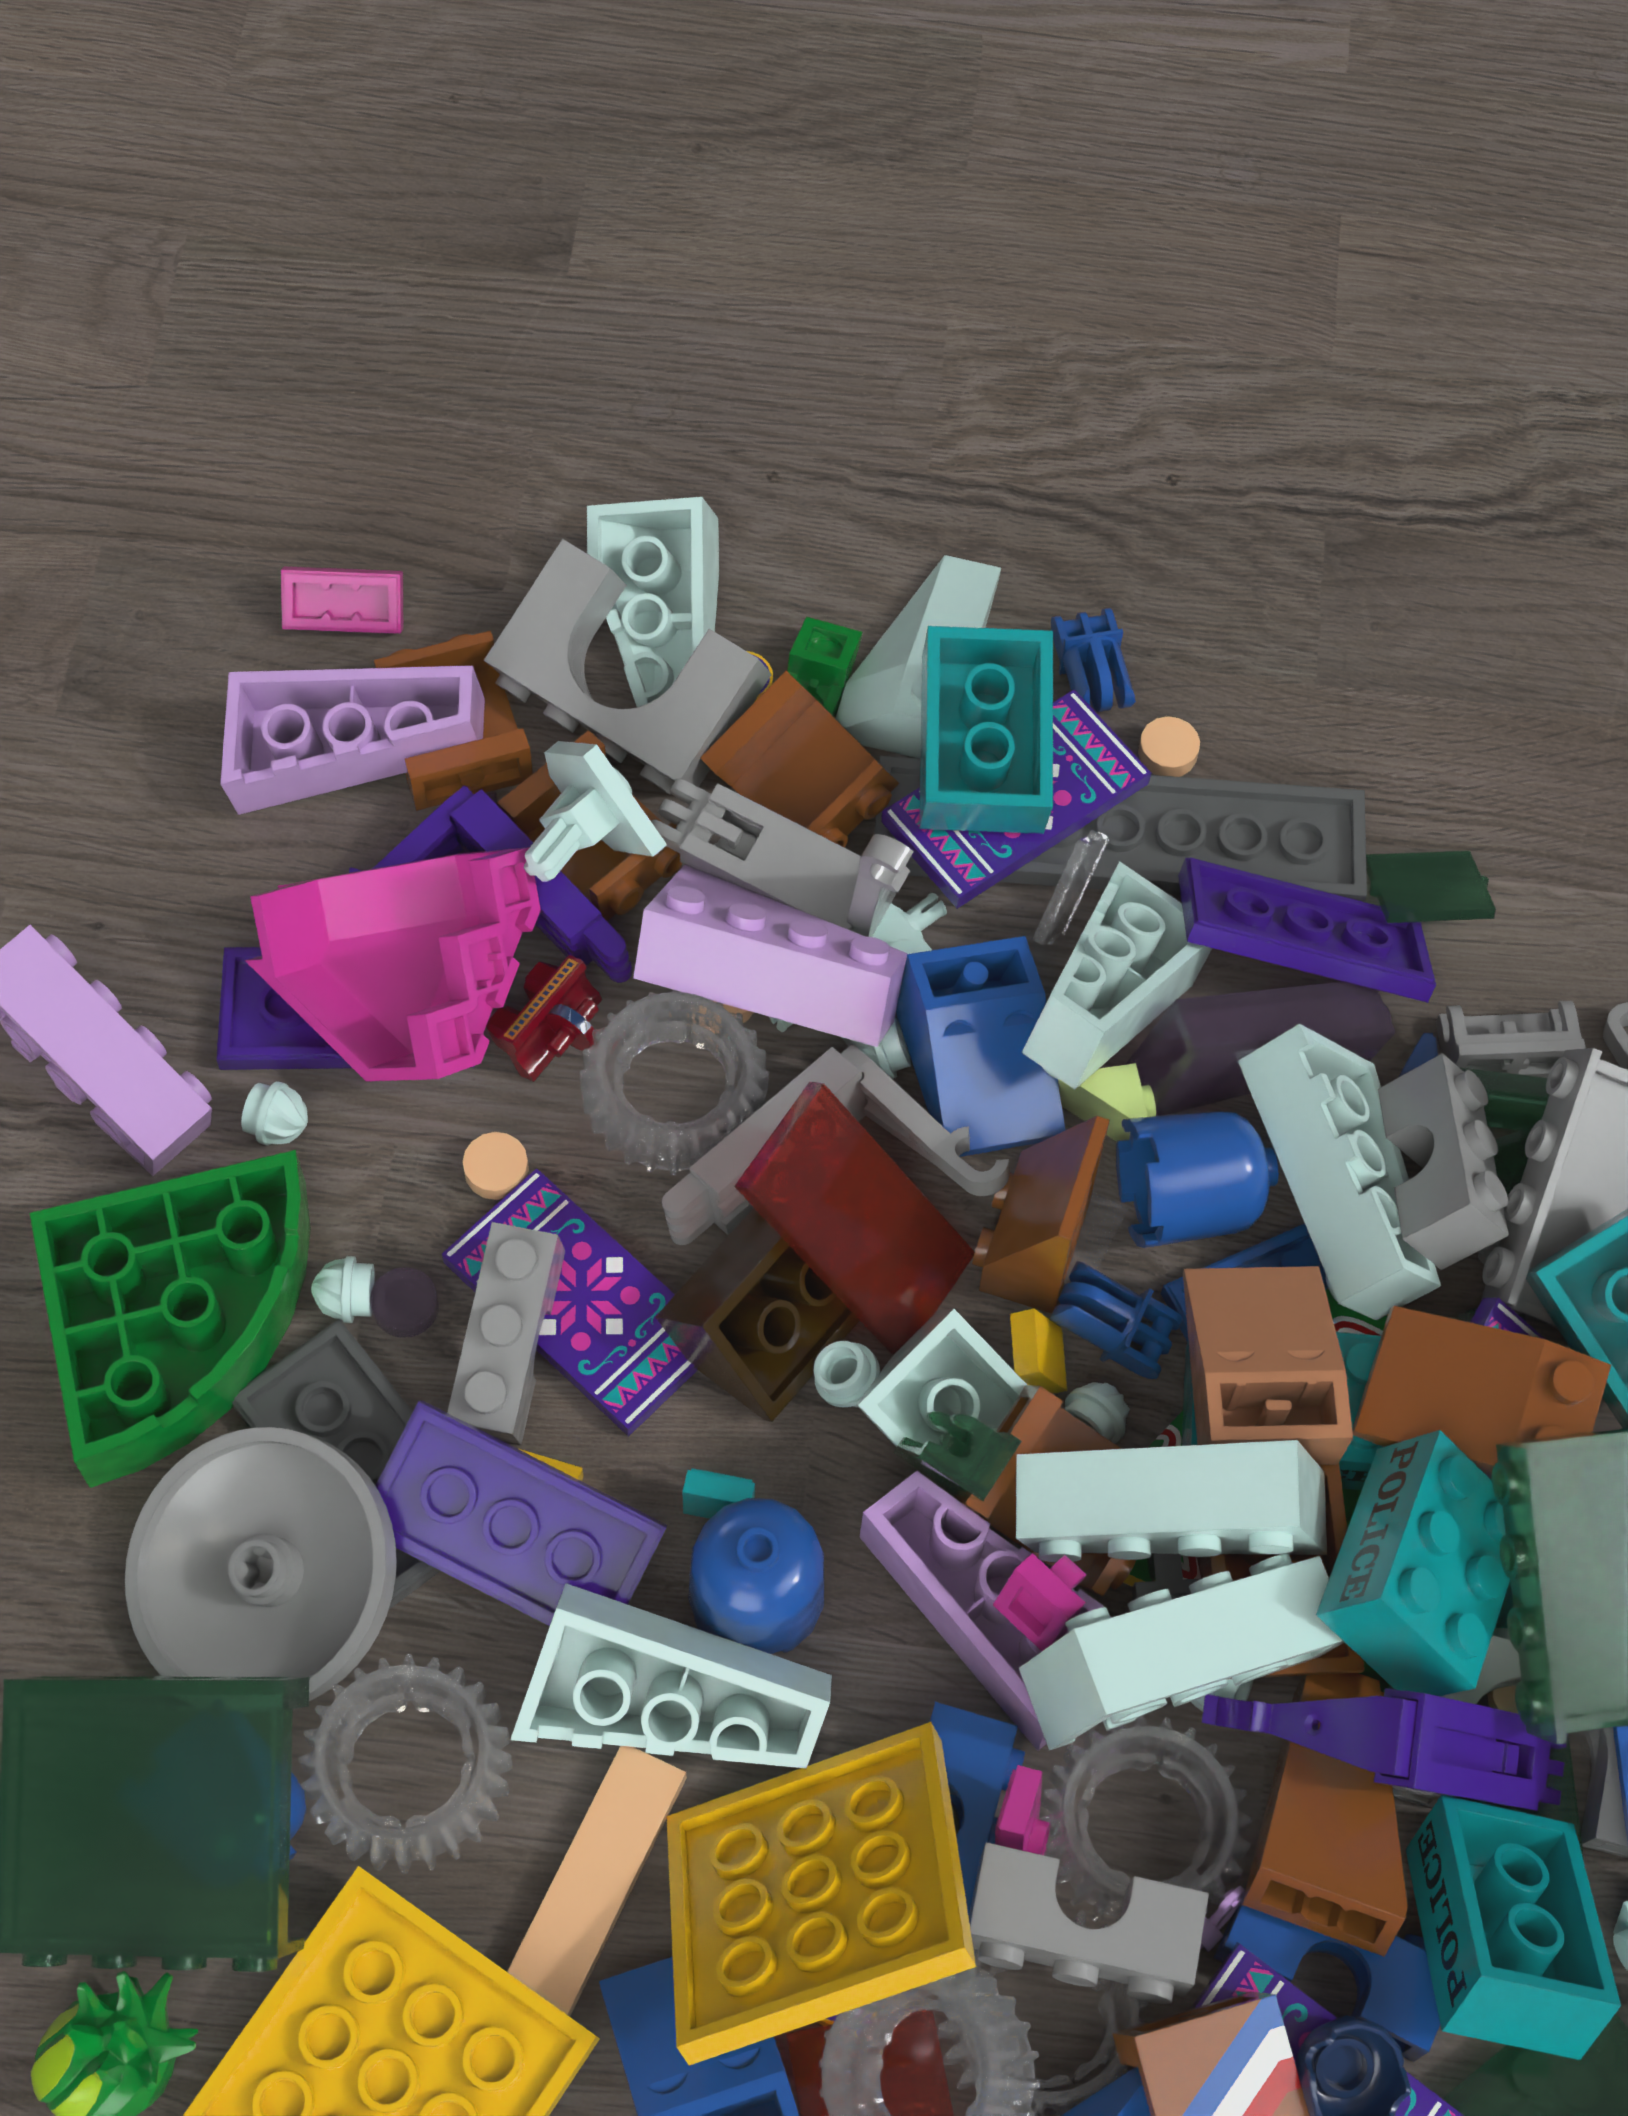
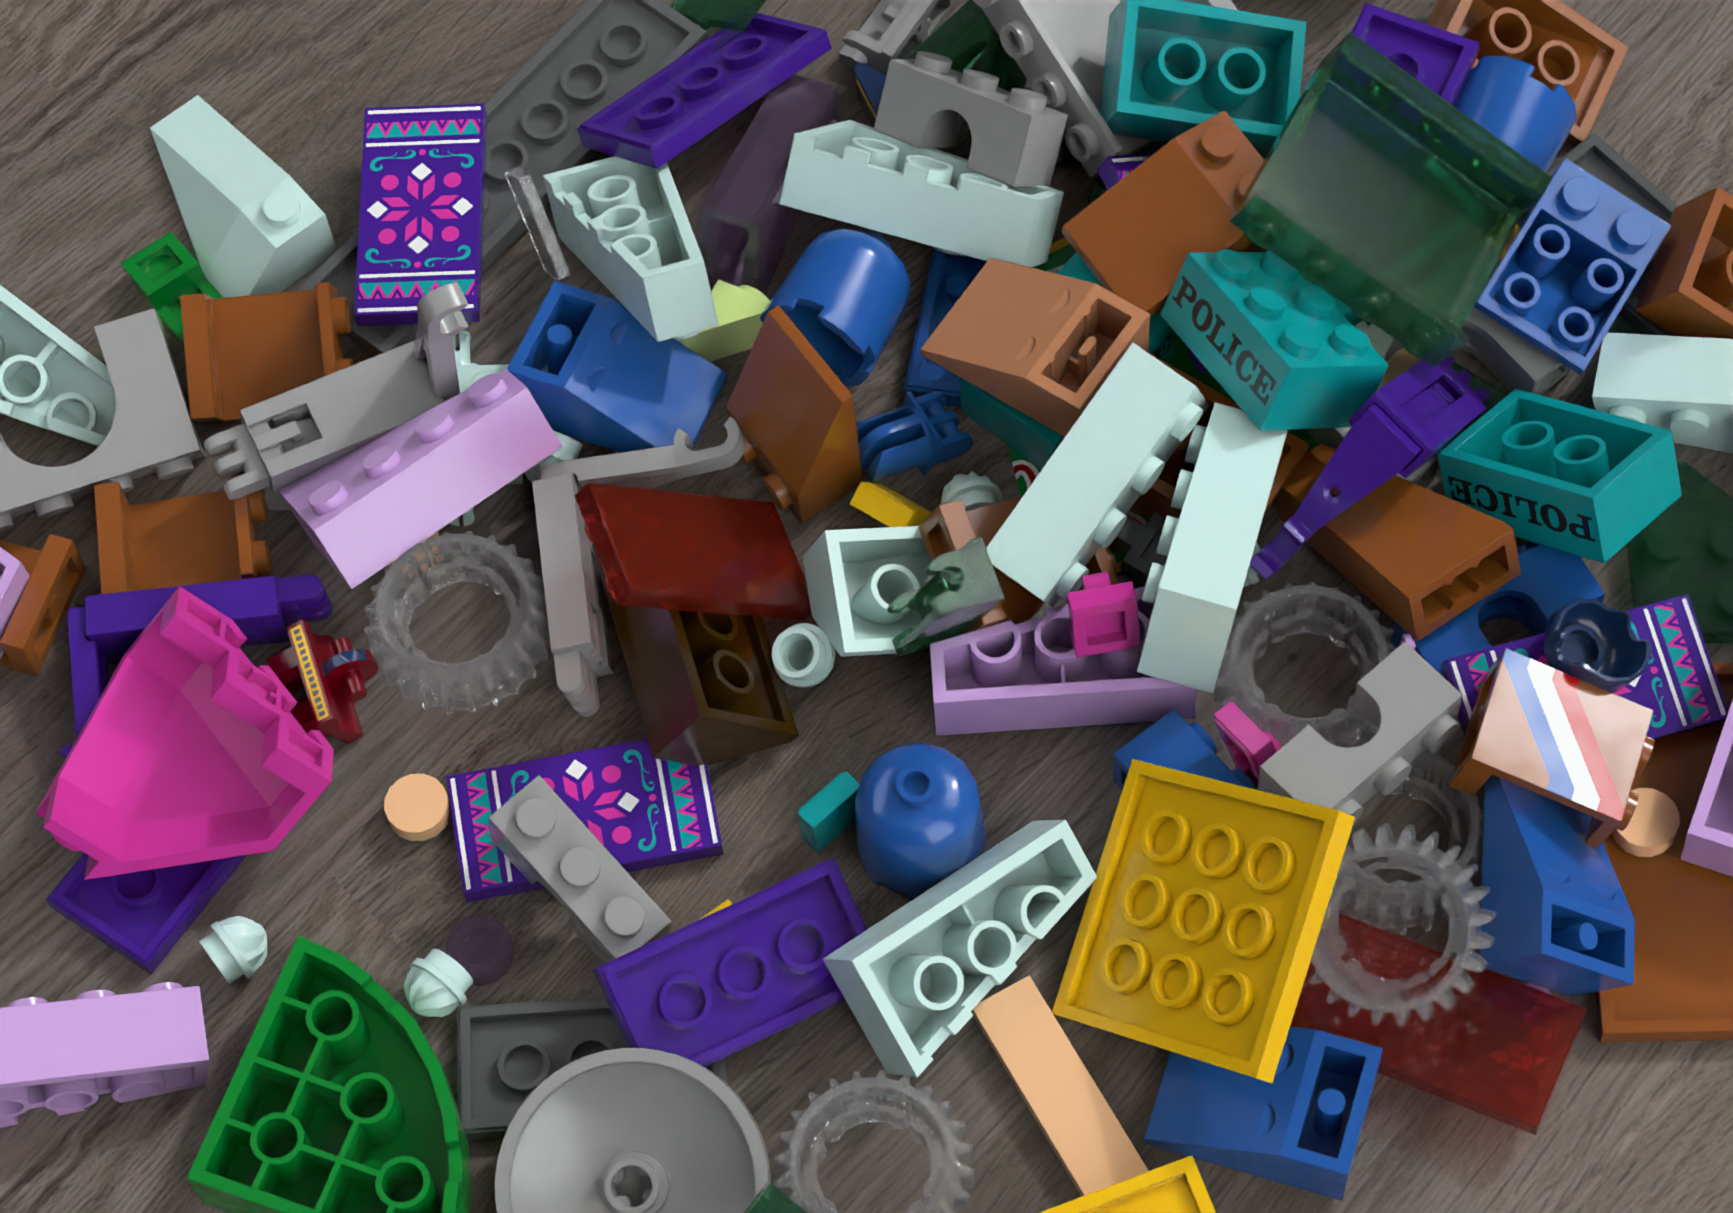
camera: 45 degrees left, 0 degrees up
(592, 807) = (179, 519): light aqua piece -> none
(986, 729) = (363, 183): teal brick -> none
(1093, 659) = (343, 83): blue arm -> none
(1169, 747) = (461, 80): light nougat piece -> none

